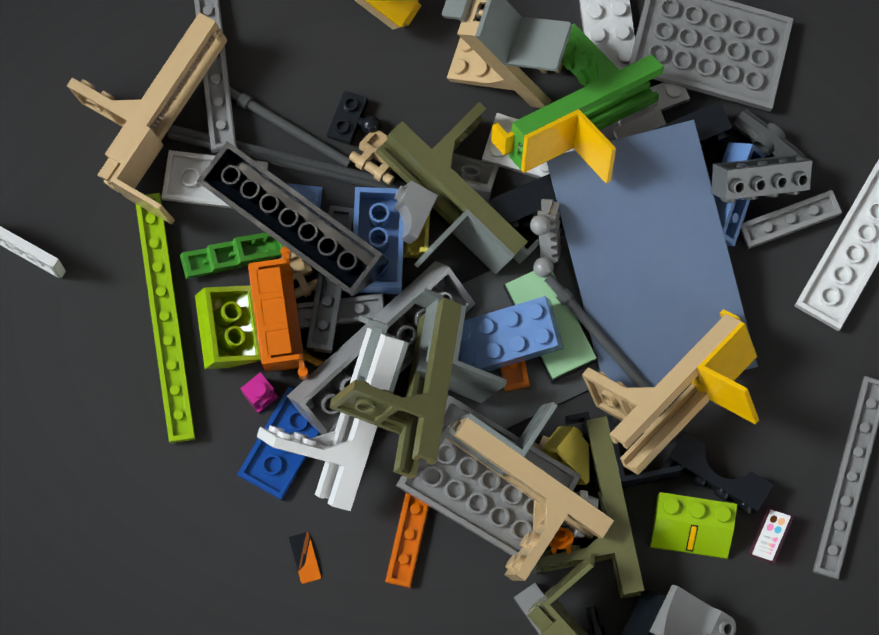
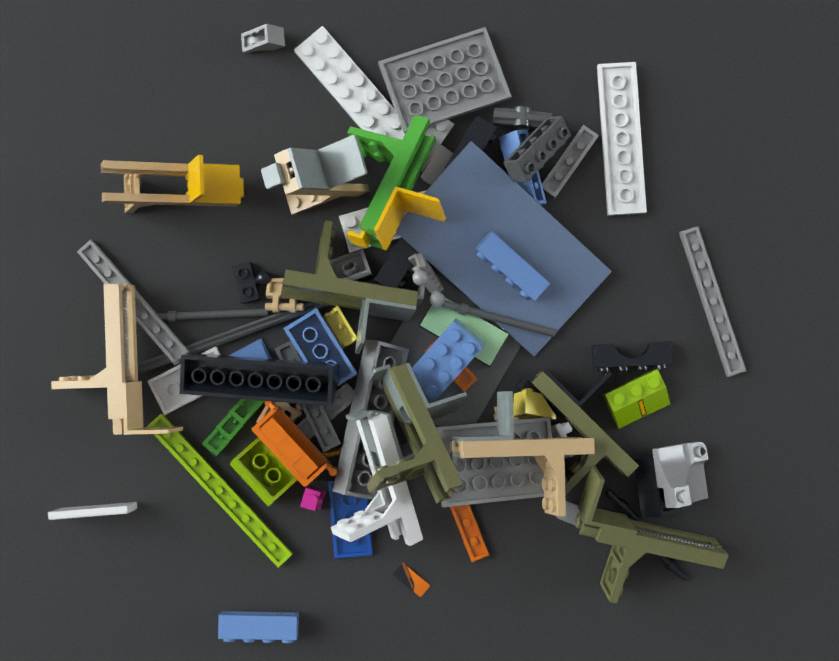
camera: 30 degrees left, 10 degrees up
(104, 489) = (259, 626): none -> medium blue brick
(414, 207) = (331, 317): light grey arch -> none
(562, 540) = (570, 470): orange plate -> none
(649, 282) = (515, 268): none -> medium blue brick
(709, 367) = (577, 348): tan piece -> none
(771, 536) = (688, 372): slope -> none

